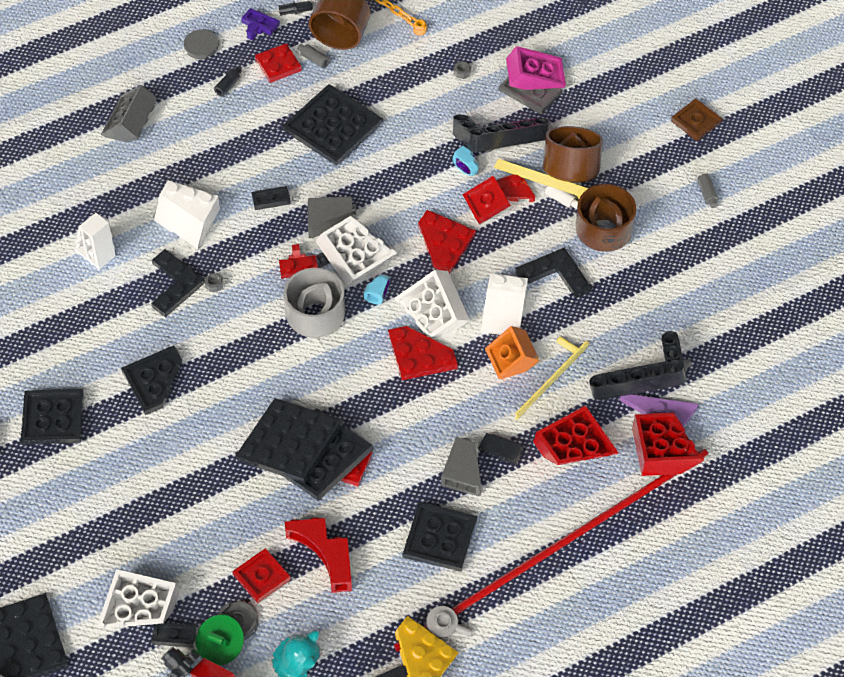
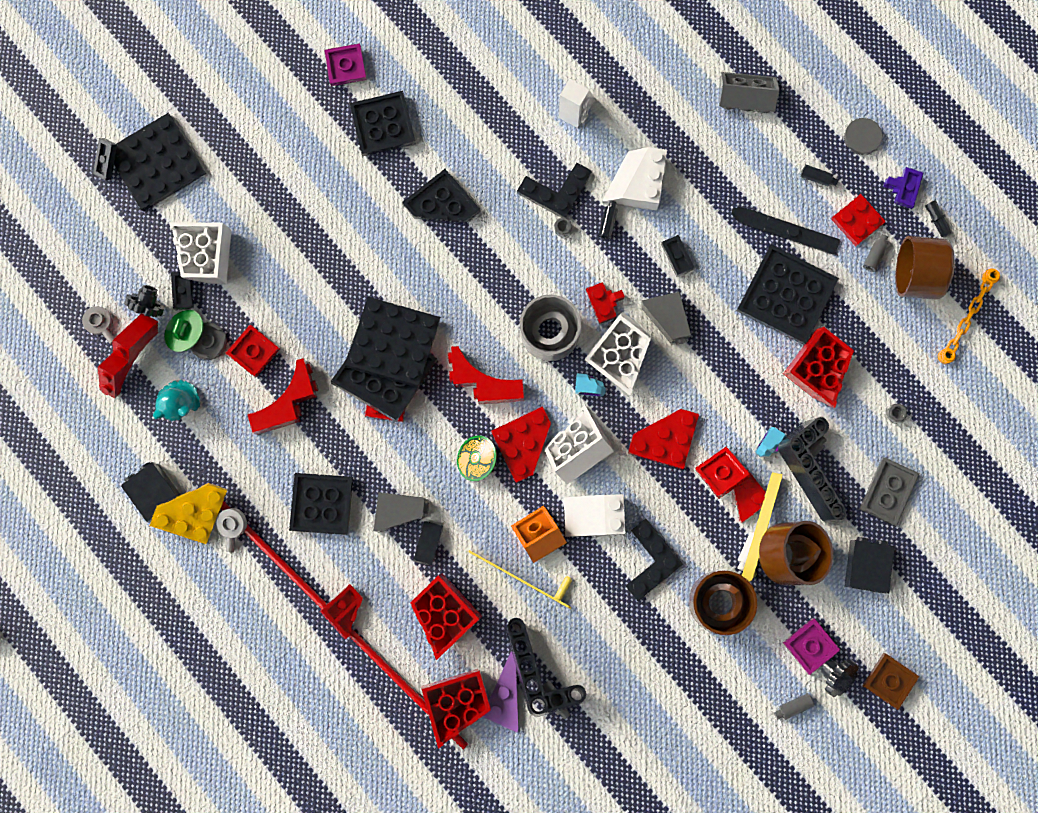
camera: 85 degrees right, 25 degrees up
(219, 245) = (608, 221): none -> black cylinder
(270, 116) = (786, 230): none -> black piece
(357, 371) = (488, 389): none -> red arch
(406, 111) = (821, 366): none -> red wedge
(426, 390) = (476, 458): none -> shield
(534, 70) = (911, 492): dark pink slope -> none
(553, 531) = (343, 610): none -> red wing
(593, 112) = (869, 565): none -> black brick
(656, 168) = (811, 646): none -> magenta plate
(685, 151) = (839, 676): none -> black plant

